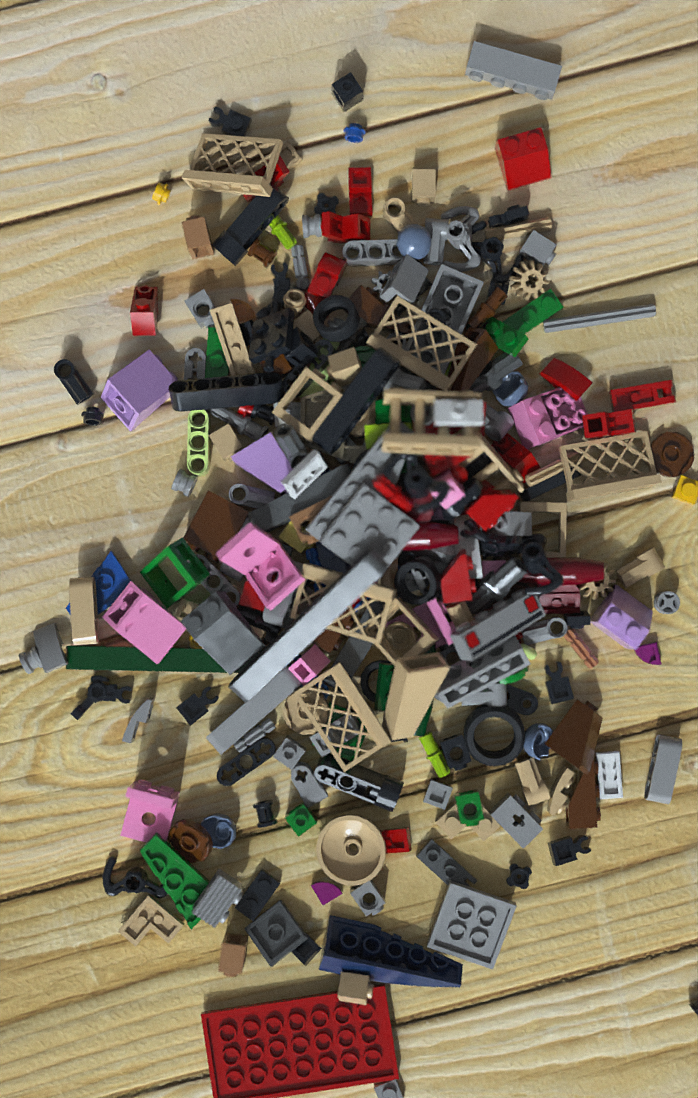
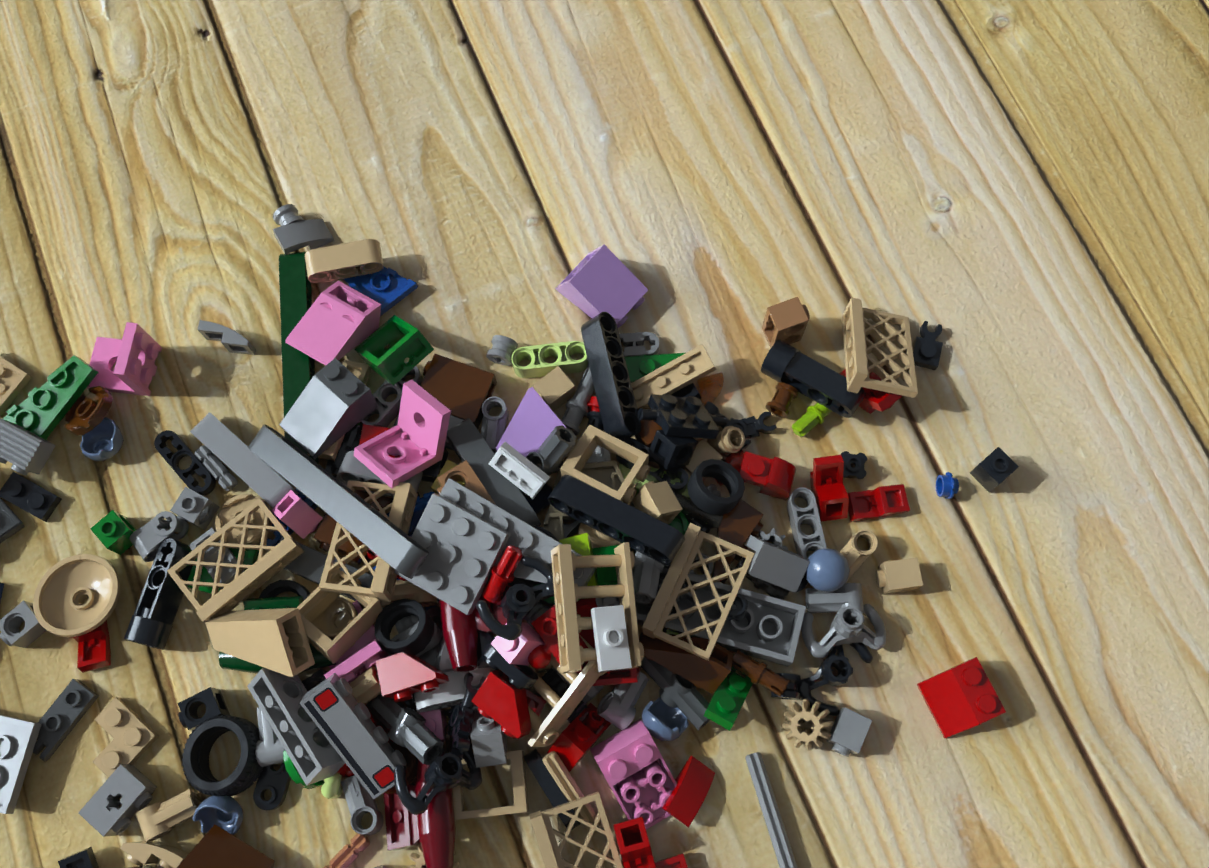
camera: 85 degrees right, 15 degrees down
(74, 382) = (600, 220): black piece -> none
(92, 416) = (566, 245): black plate -> none
(100, 692) = (258, 296): black piece -> none
(130, 885) = (42, 356): black piece -> none
(144, 311) = (692, 281): red slope -> none
(161, 193) = (830, 282): yellow plate -> none
(194, 707) = (244, 396): black plate -> none
(195, 302) = (710, 333): light grey brick -> none
(267, 820) = (123, 491): black bush -> none
(290, 155) = (901, 413): tan tile -> none
(300, 267) = (775, 444): light grey axle -> none
(311, 225) = (824, 446): light grey wheel -> none
(326, 891) = (31, 574): magenta tile -> none
(434, 754) = (199, 683): lime axle -> none
(437, 794) = (150, 695): light grey plate -> none
(464, 798) = (141, 736): green brick -> none
(513, 71) = (1069, 669): light grey brick -> none
(513, 215) = (886, 694): black plate -> none
(519, 229) = (870, 704): tan axle -> none
(521, 882) = (40, 816): black plate -> none
(535, 312) = (766, 737): green plate -> none
(558, 687) = (291, 834): black plate -> none
(577, 620) = (377, 849): black plate -> none

